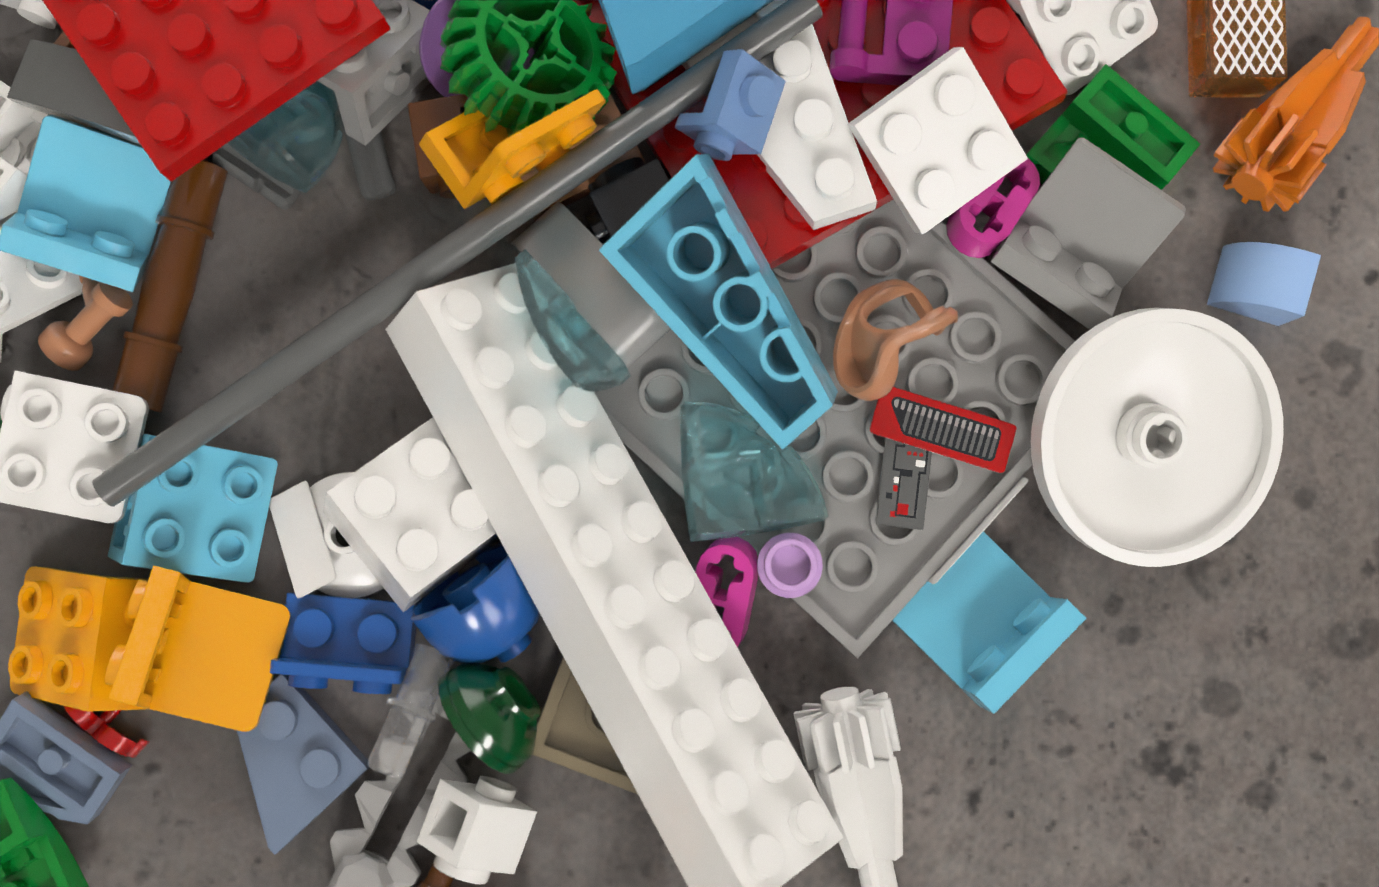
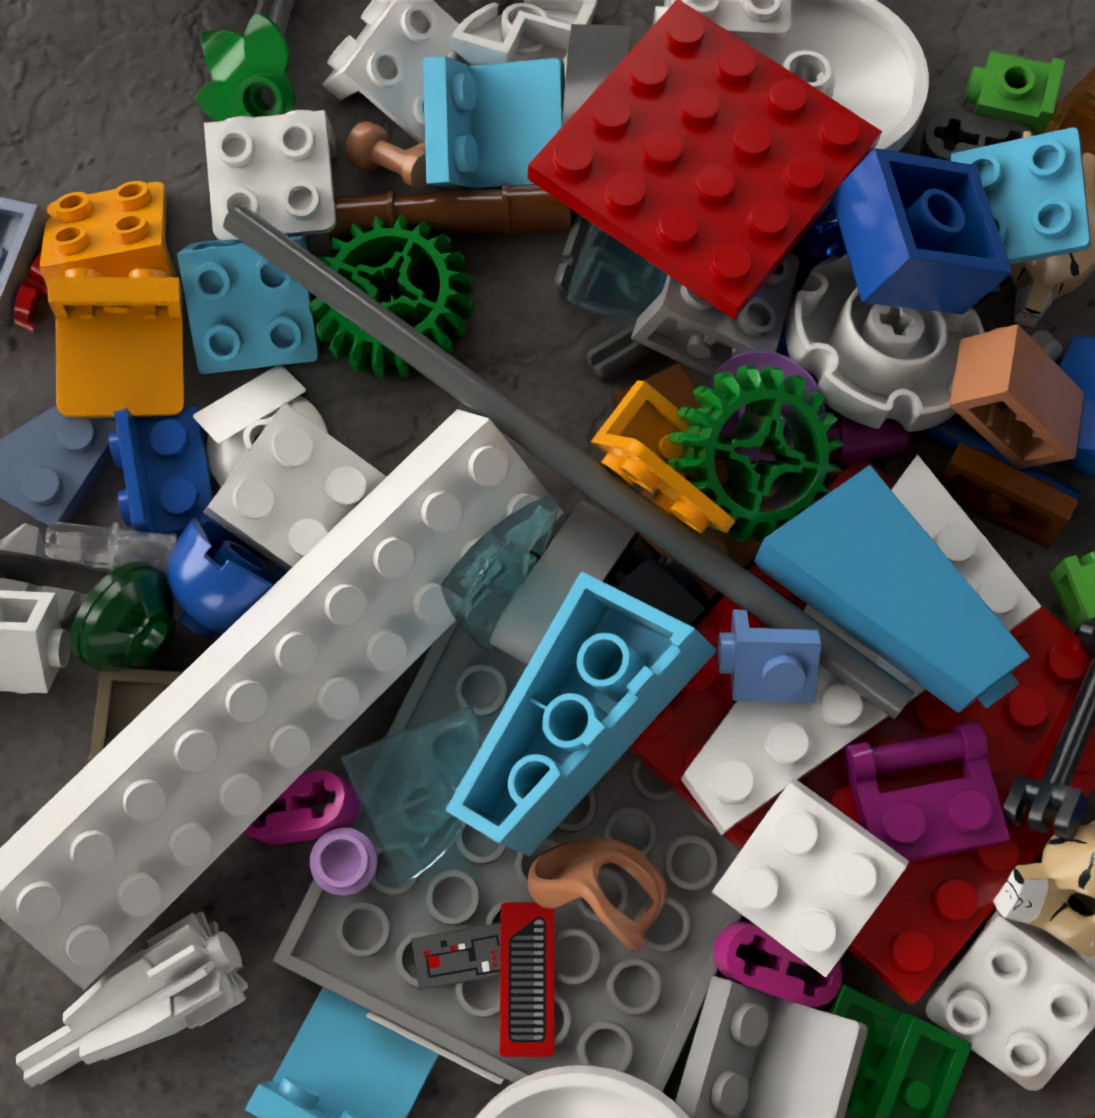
camera: 85 degrees right, 10 degrees down
(198, 333) = (405, 255): none -> green gear

